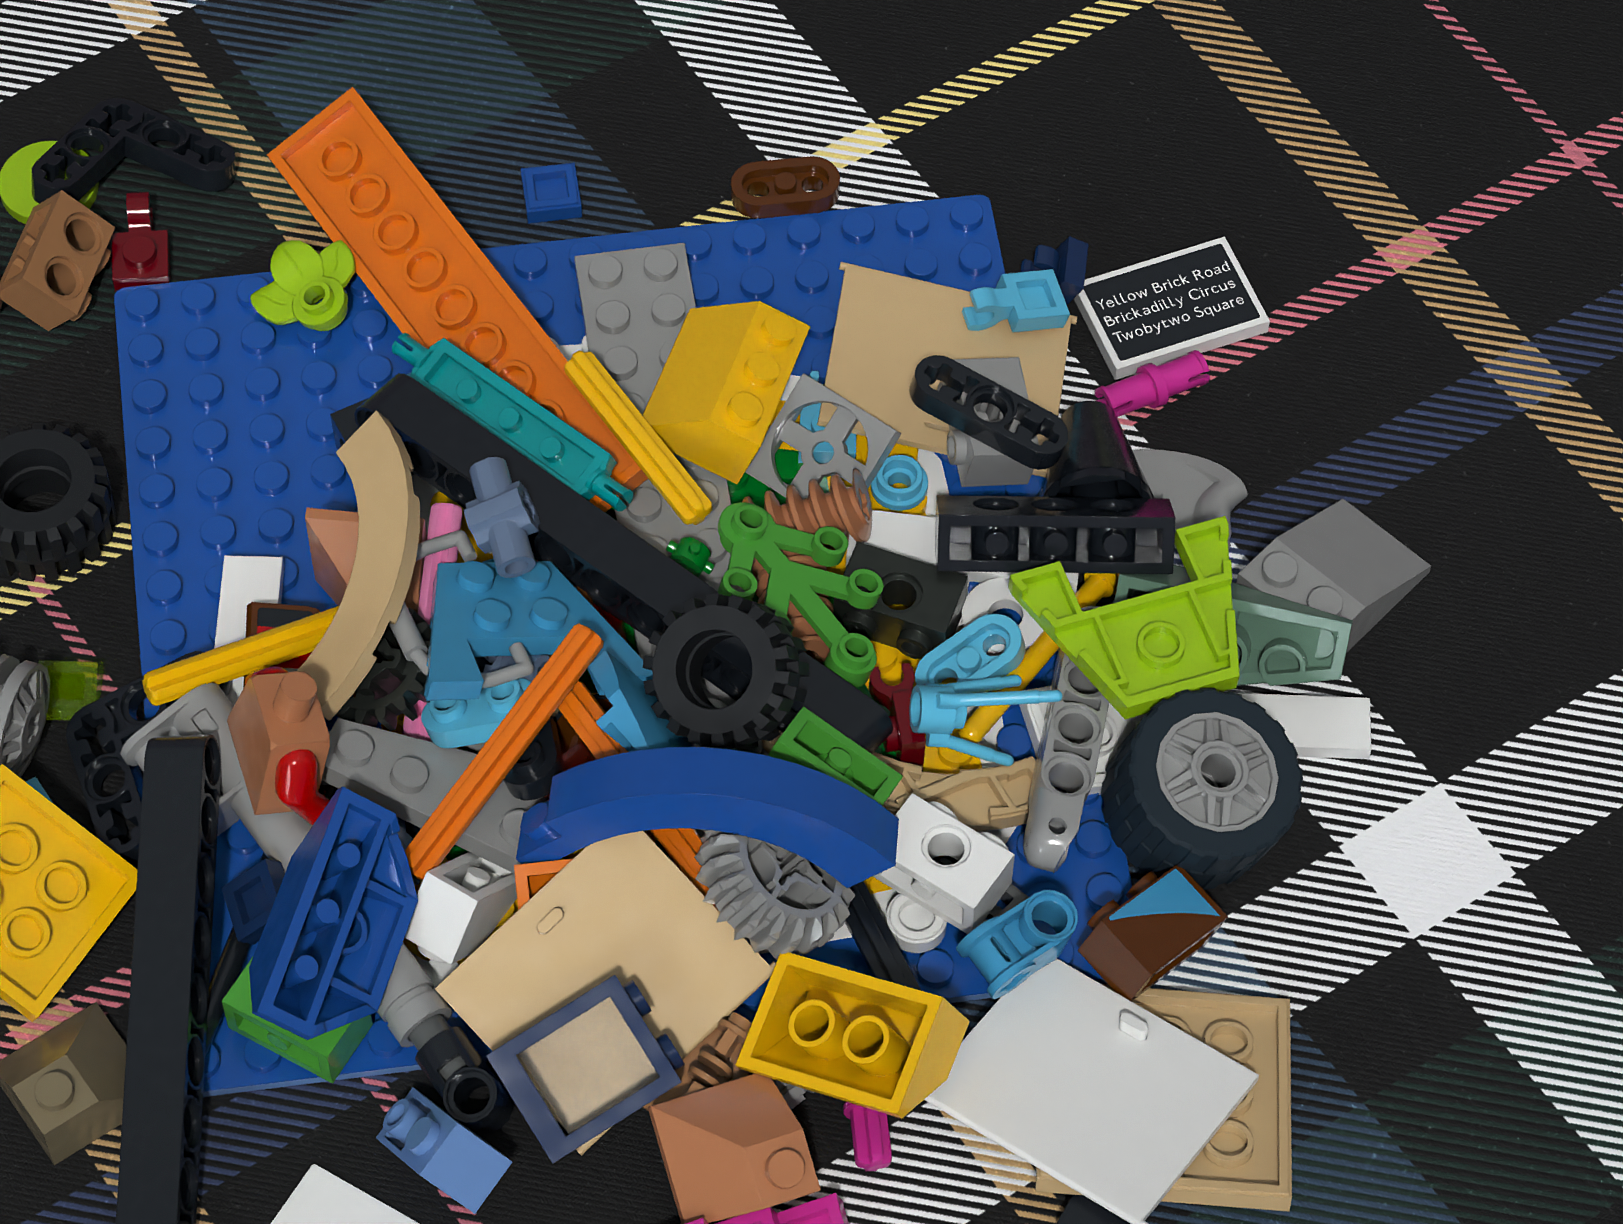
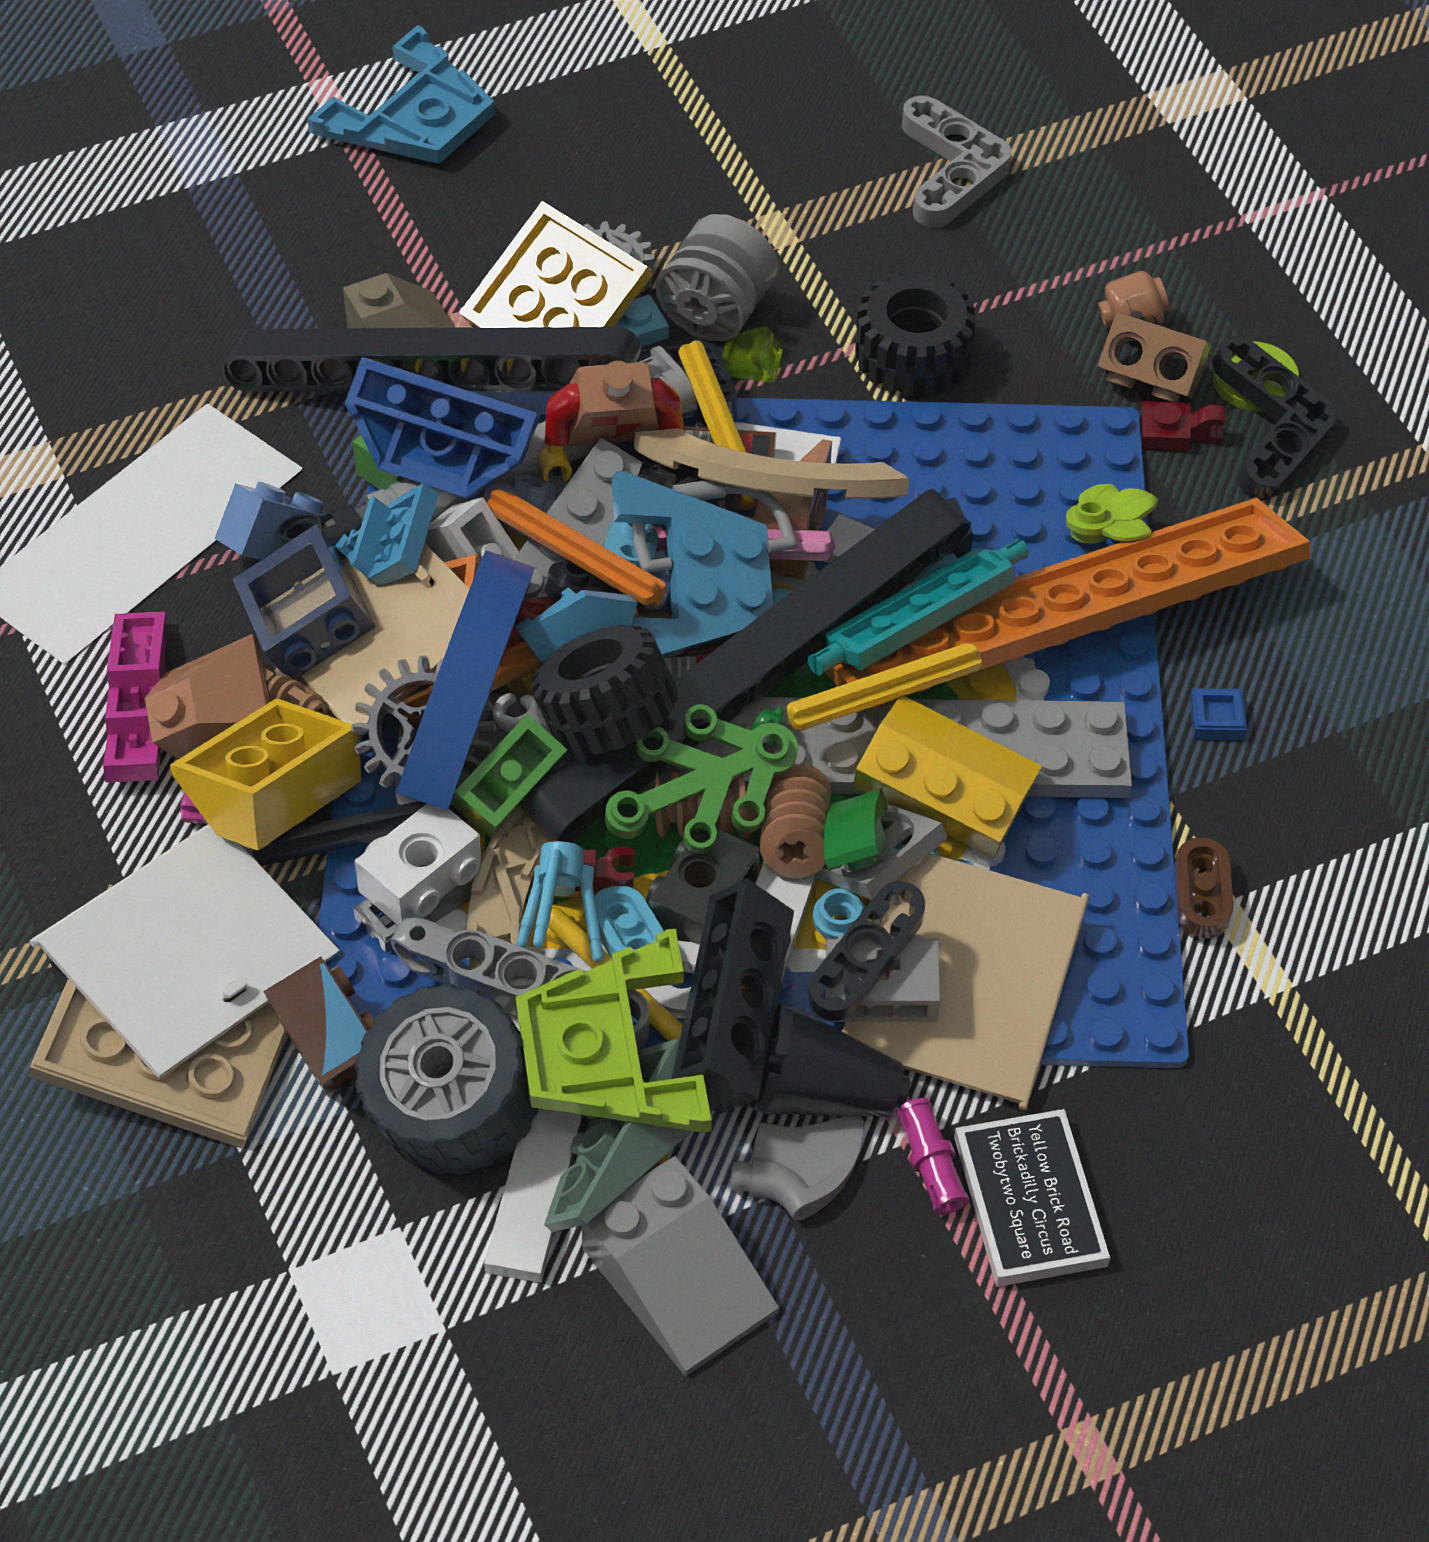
camera: 100 degrees right, 5 degrees down
(485, 976) = (391, 535): none -> dark azure slope
(502, 517) = (793, 558): sand blue axle -> none
(828, 446) = (855, 831): none -> green slope
(1011, 946) = (328, 906): dark azure piece -> none
(1024, 298) = (1027, 1043): medium azure plate -> none
(1067, 262) = (1071, 1091): dark blue tile -> none

